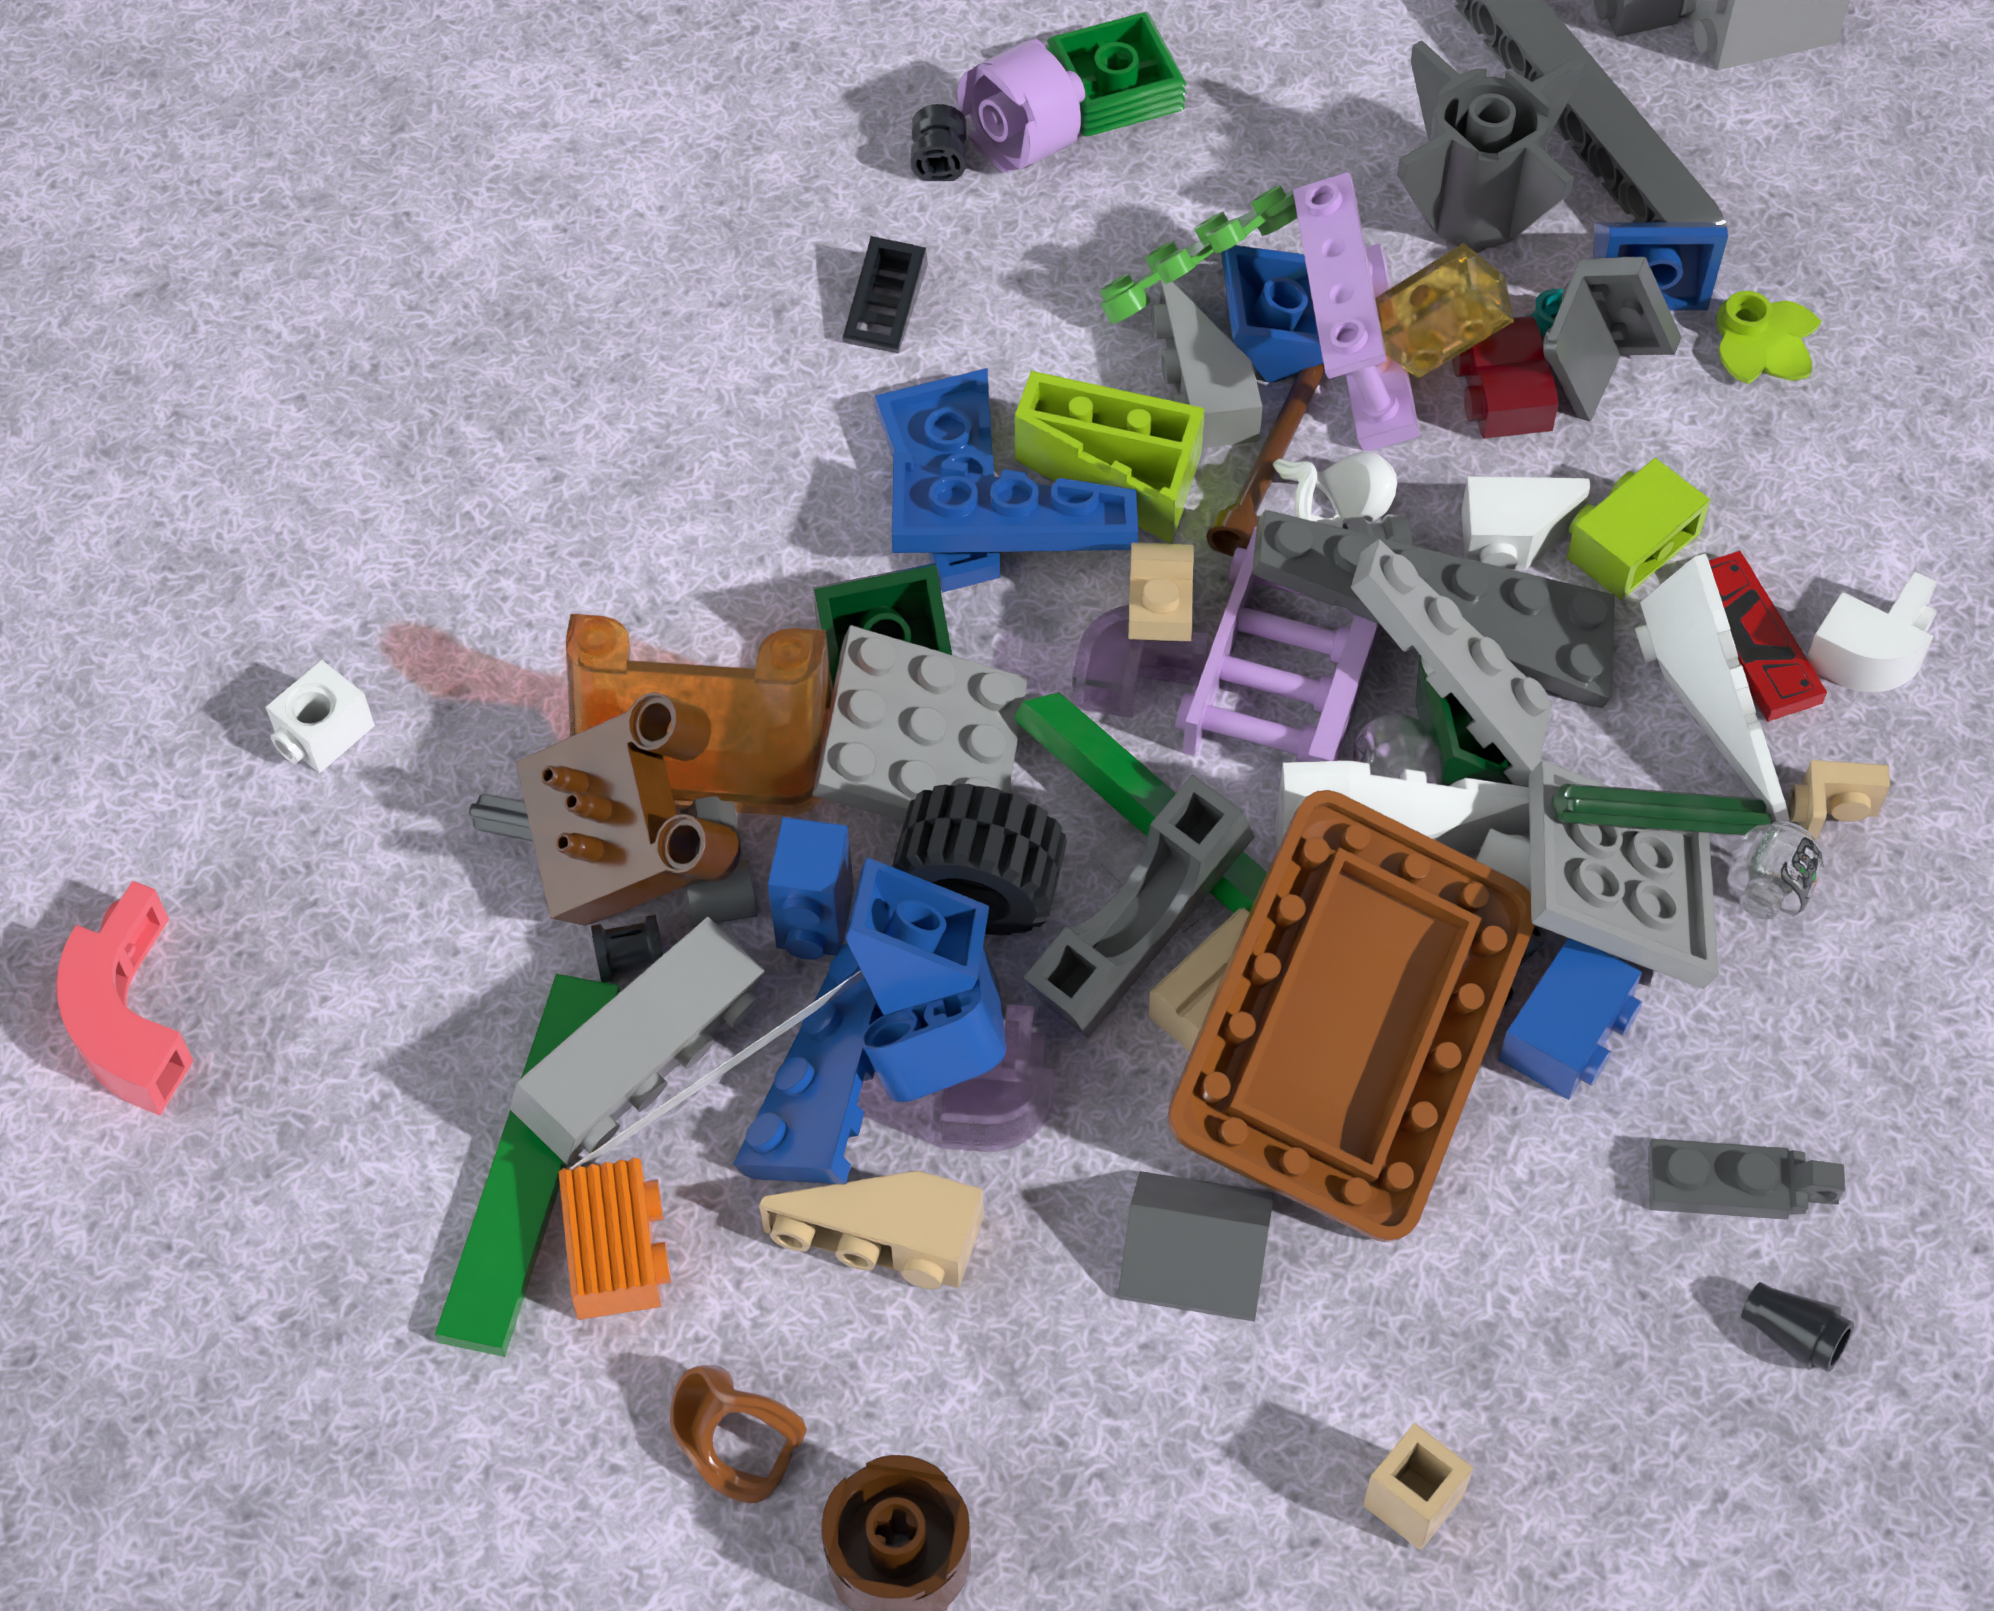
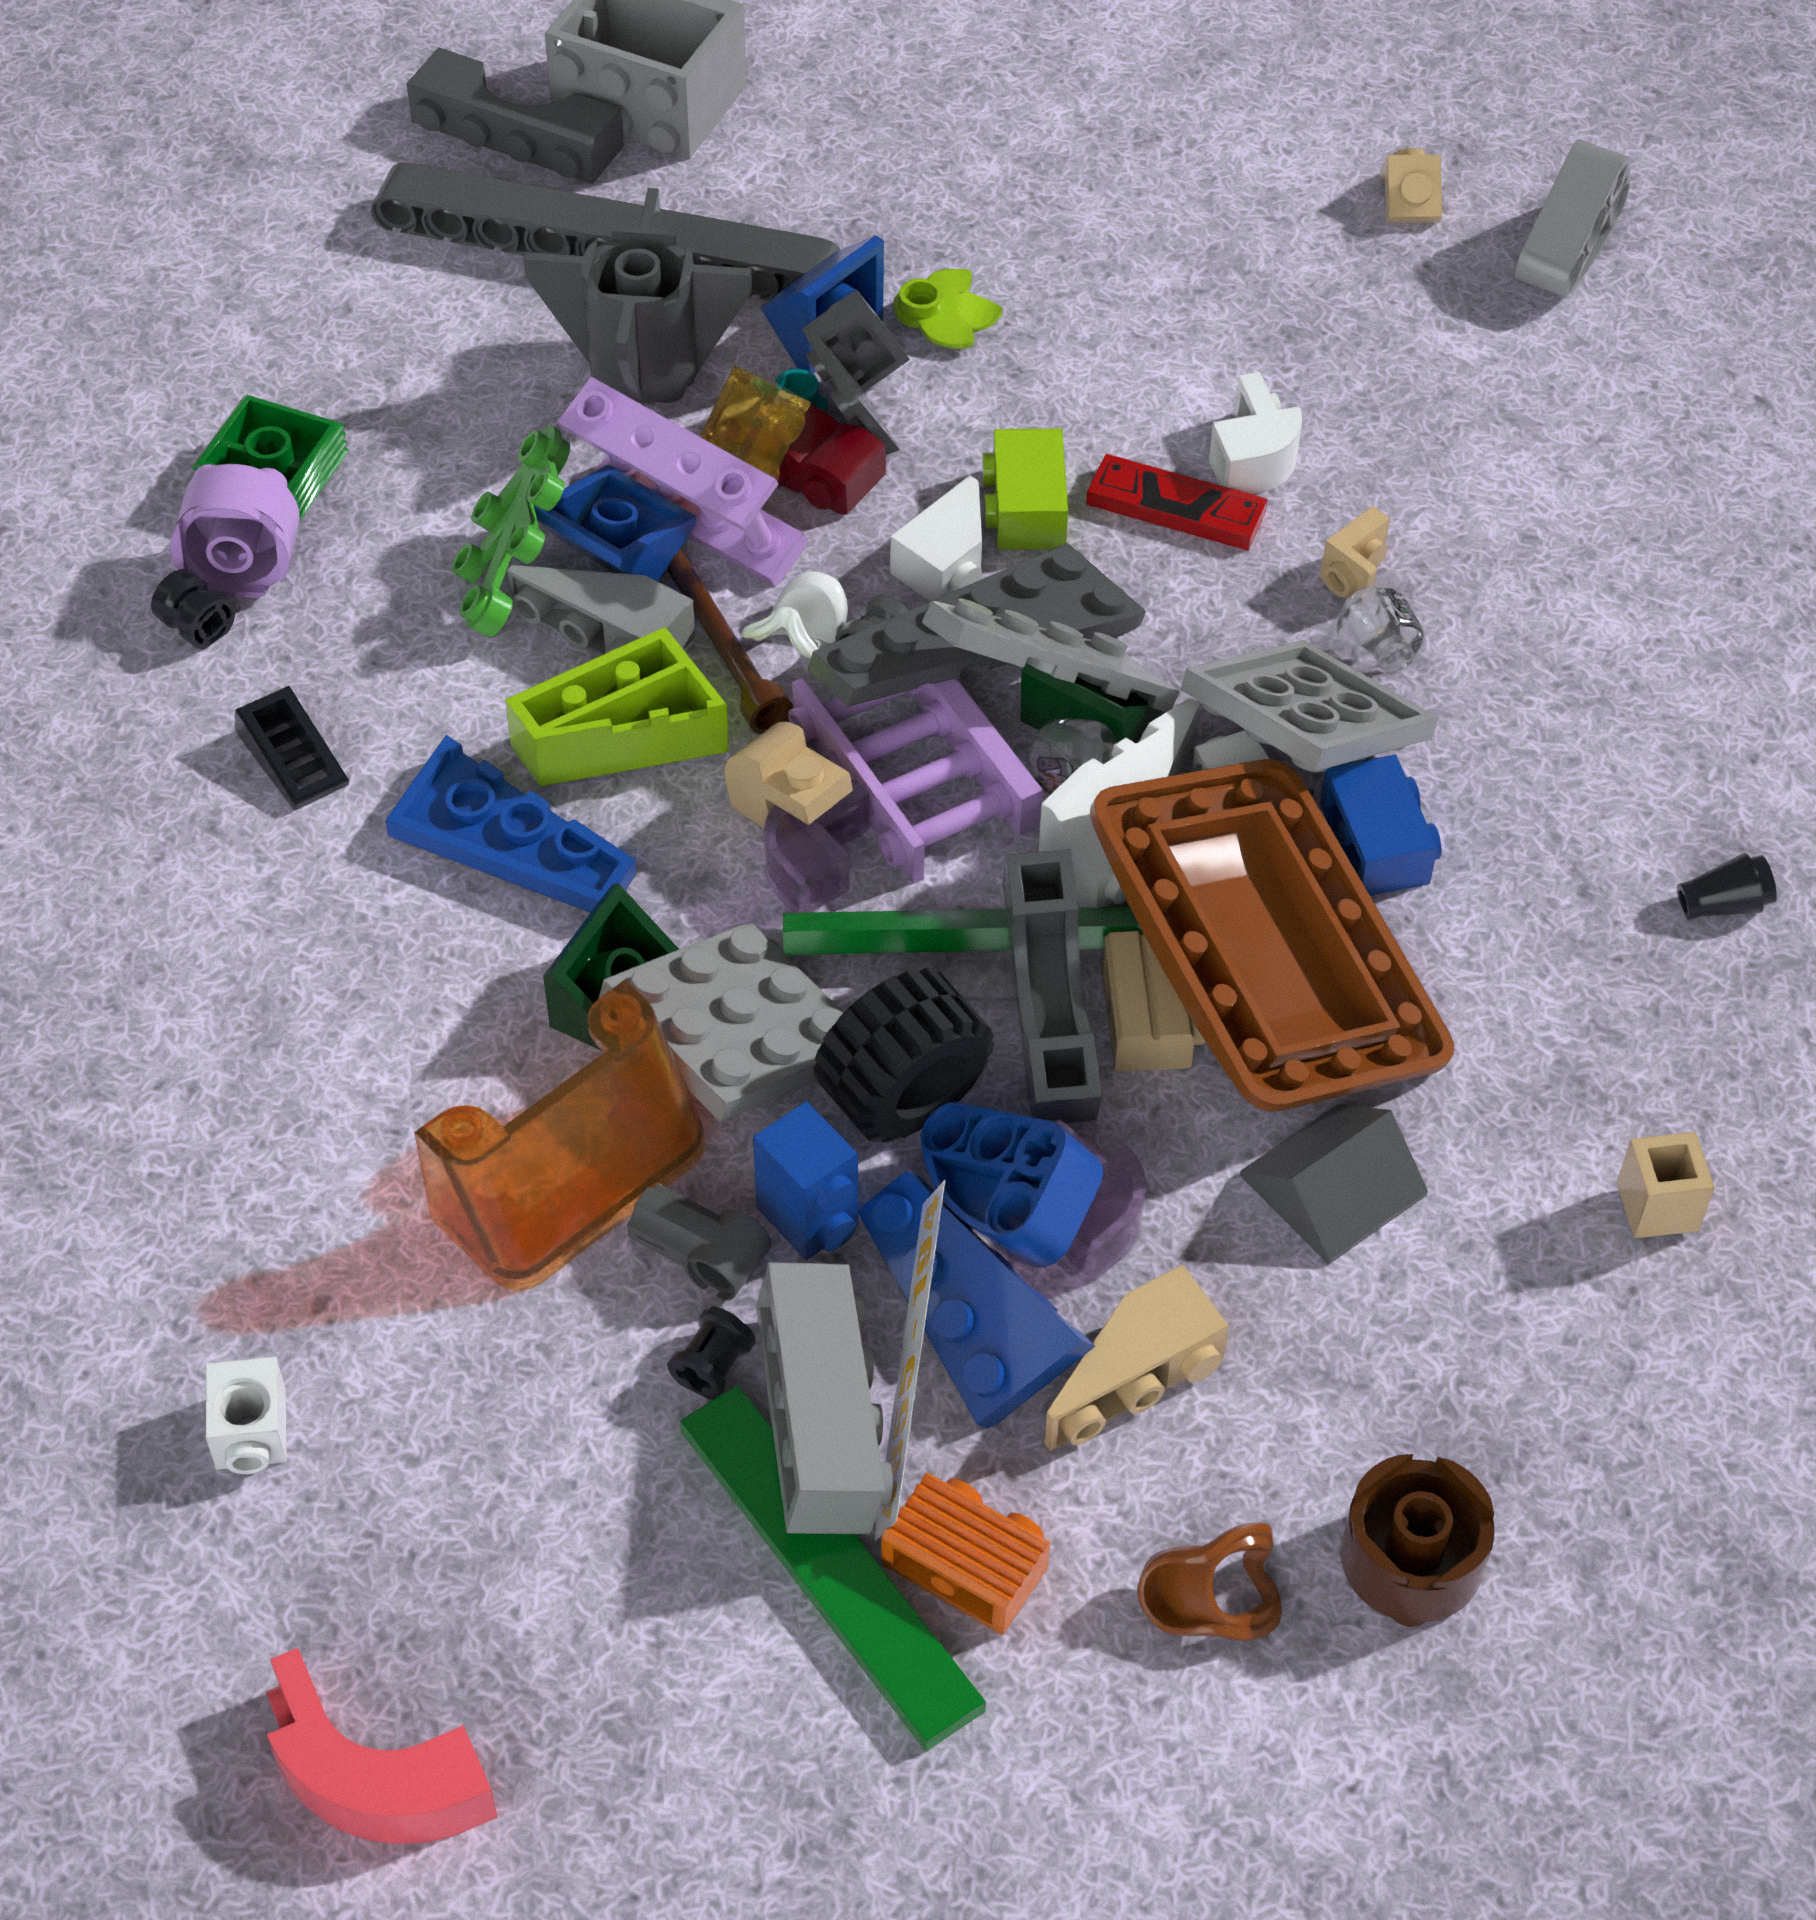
camera: 50 degrees left, 5 degrees down
(609, 816) = (595, 1267): reddish brown piece -> none
(914, 937) = (949, 1135): blue slope -> none
(1008, 513) = (601, 818): blue wing -> none
(1658, 809) = (1282, 645): dark green axle -> none
(1701, 666) = (1180, 535): white wedge -> none
(1738, 1179) = (1585, 839): dark grey hinge -> none

